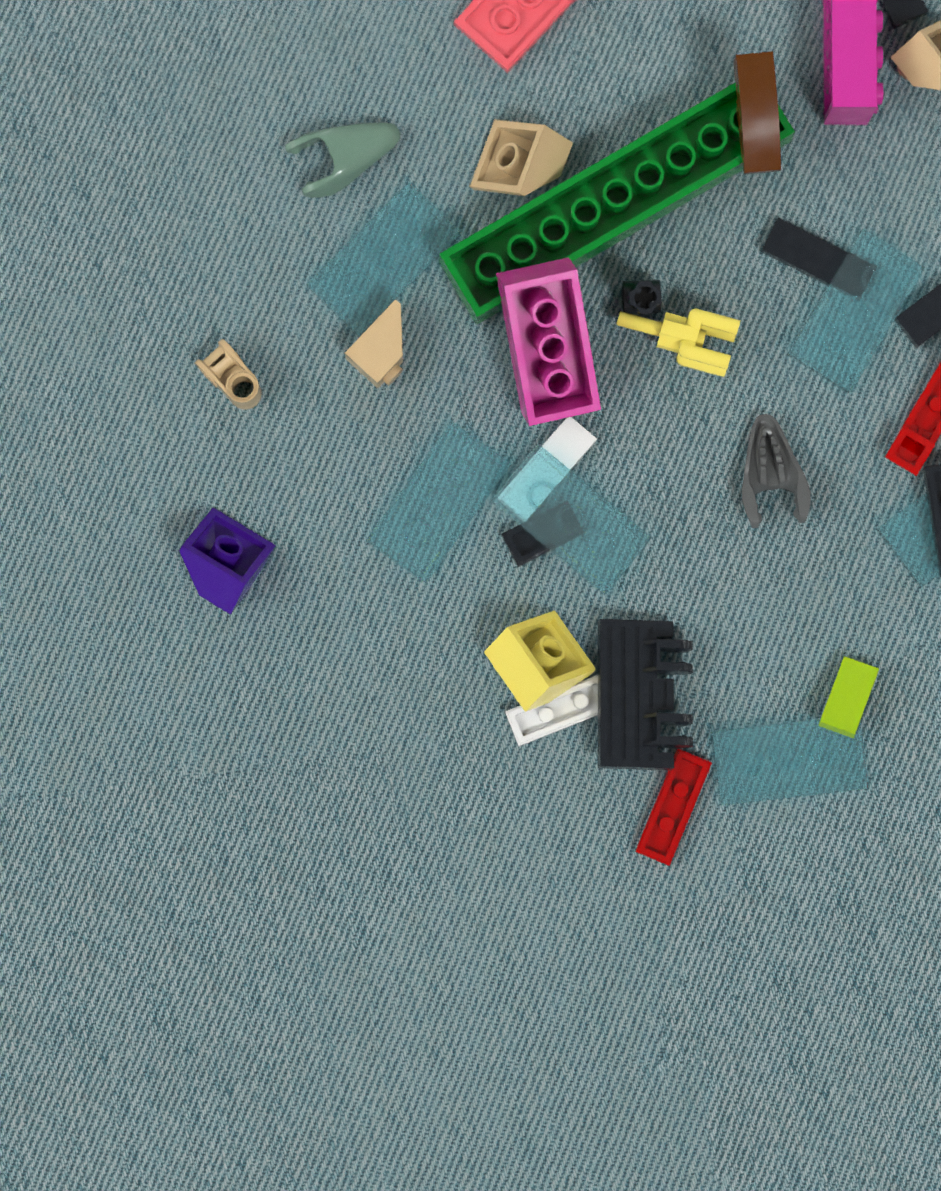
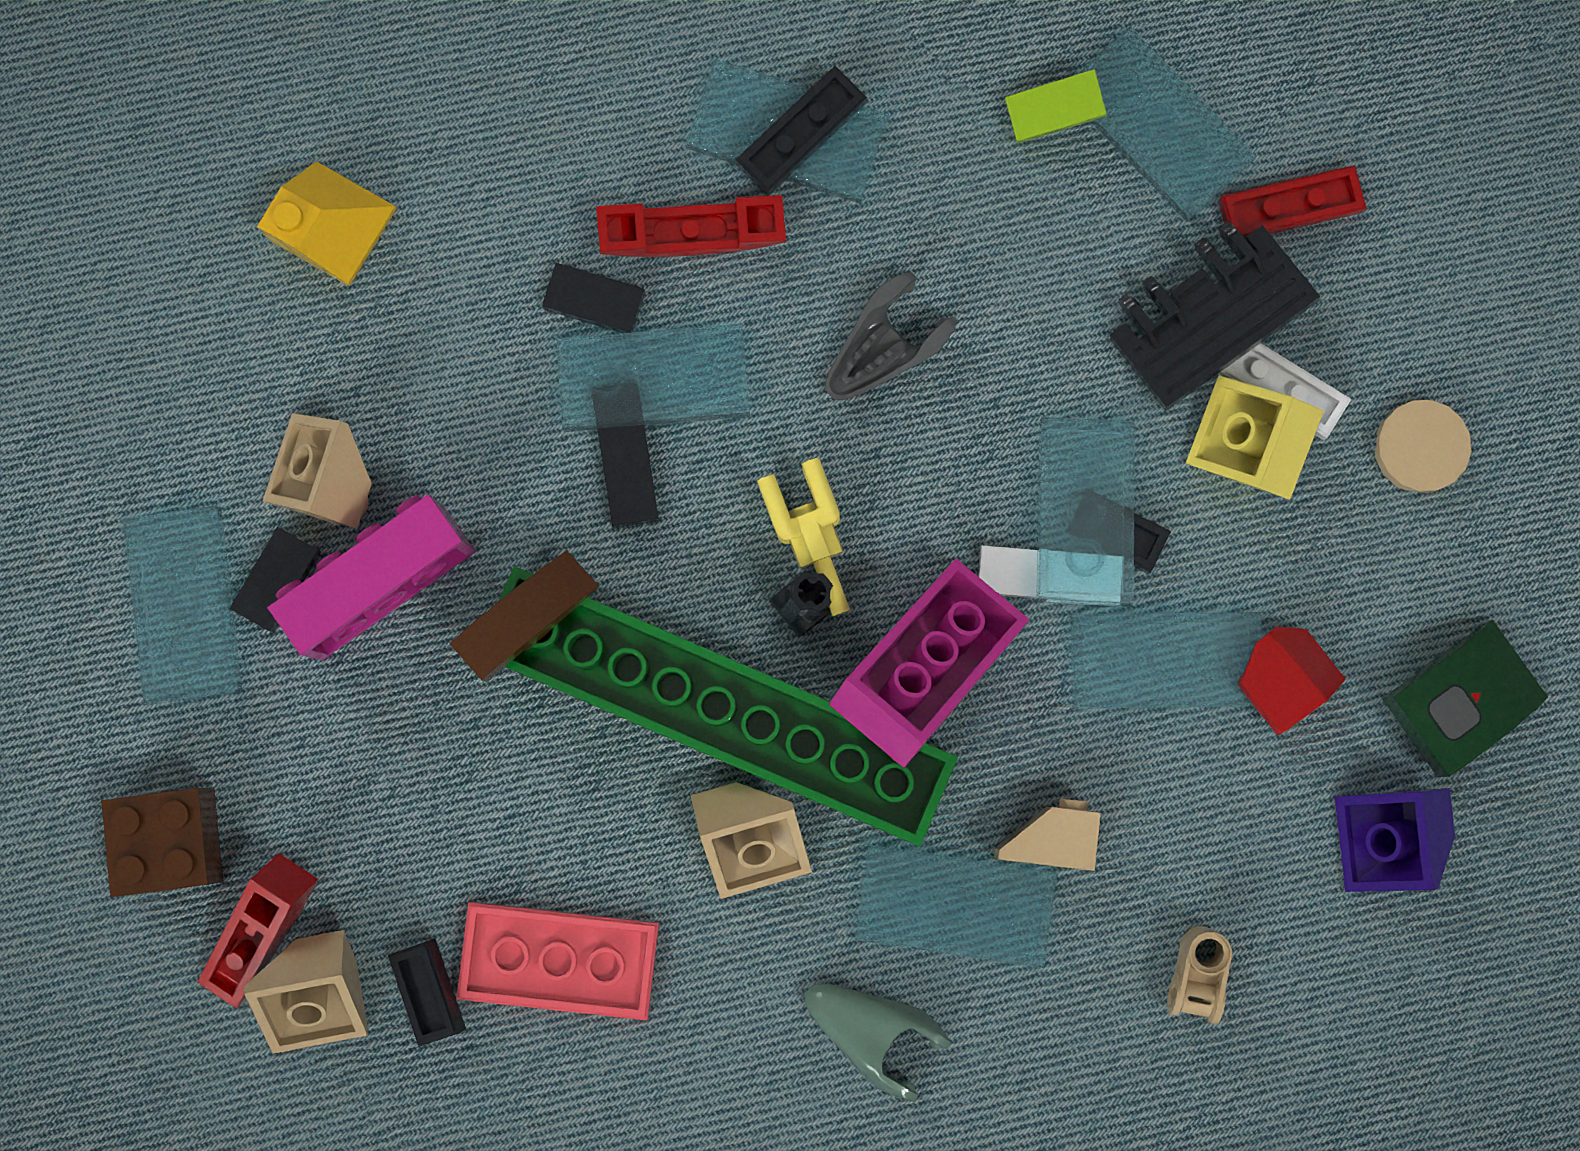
camera: 120 degrees left, 0 degrees up
(276, 671) = (1465, 700): none -> dark green slope
(373, 570) = (1288, 677): none -> red slope
(454, 770) = (1422, 446): none -> tan tile

